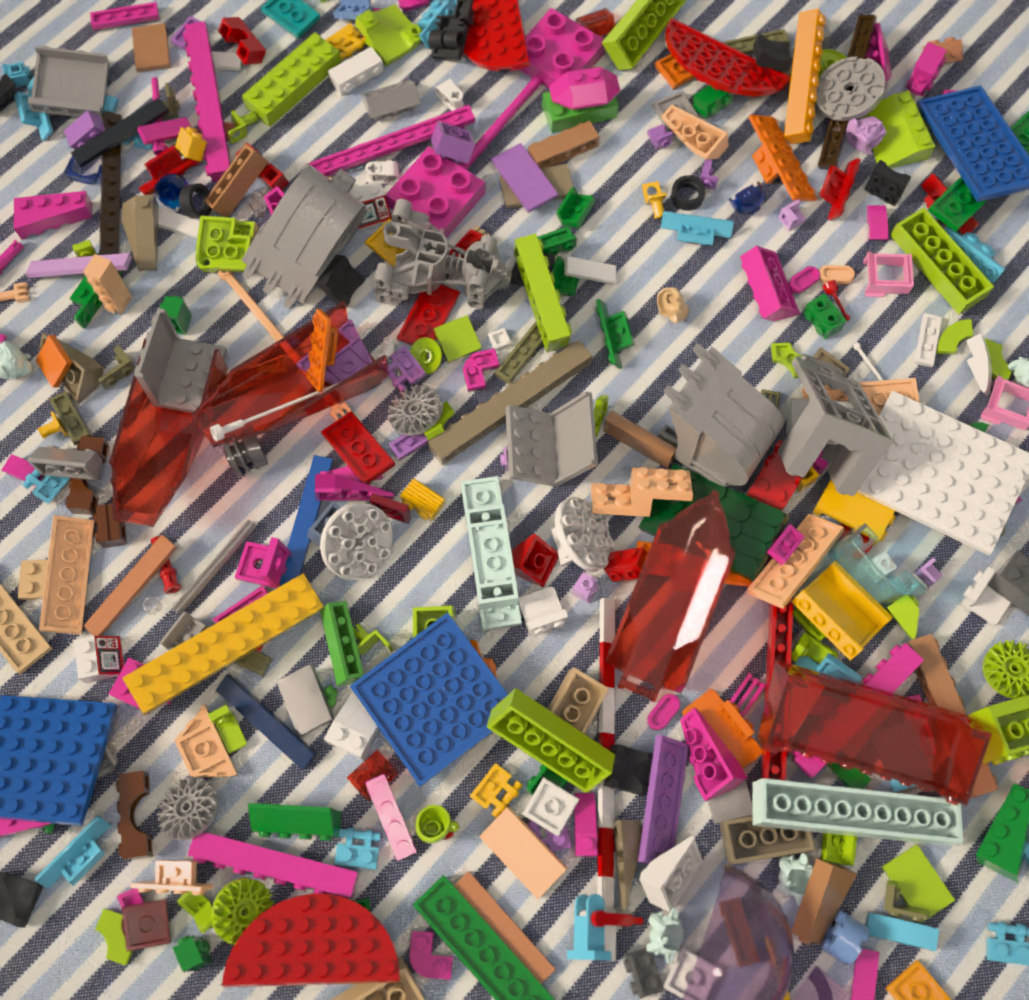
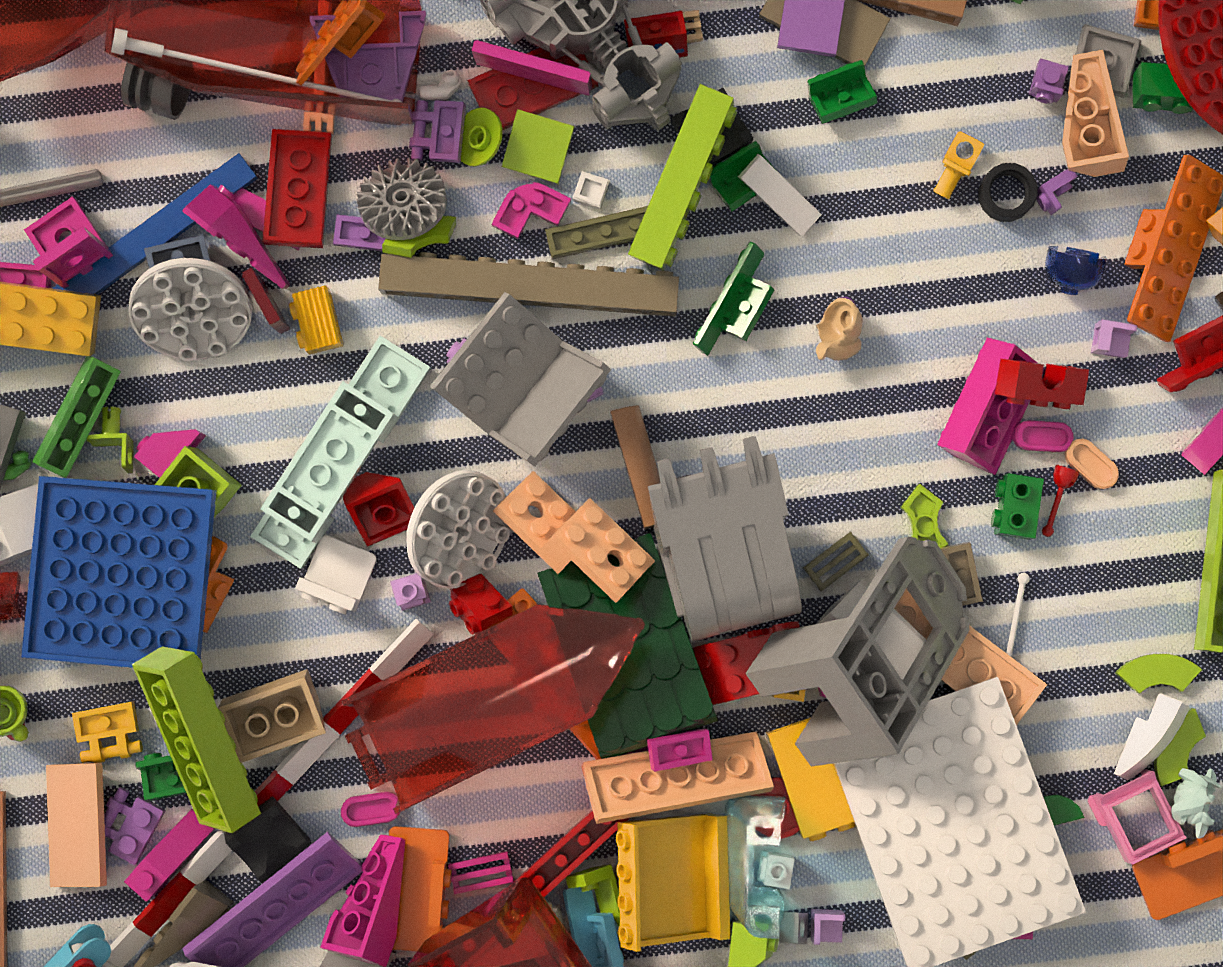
camera: 45 degrees right, 15 degrees up
(401, 623) = (162, 448): none -> dark pink slope
(425, 302) = (532, 67): none -> dark pink tile
(550, 806) = (145, 804): white tile -> none
(558, 241) = (776, 118): green bracket -> none
(600, 411) = (621, 391): lime tile -> none
(696, 228) = (969, 251): medium azure bracket -> none
(783, 254) = (1024, 380): none -> red arch
(877, 287) = (1120, 527): bright pink piece -> none
(928, 340) = (1121, 647): white tile -> none

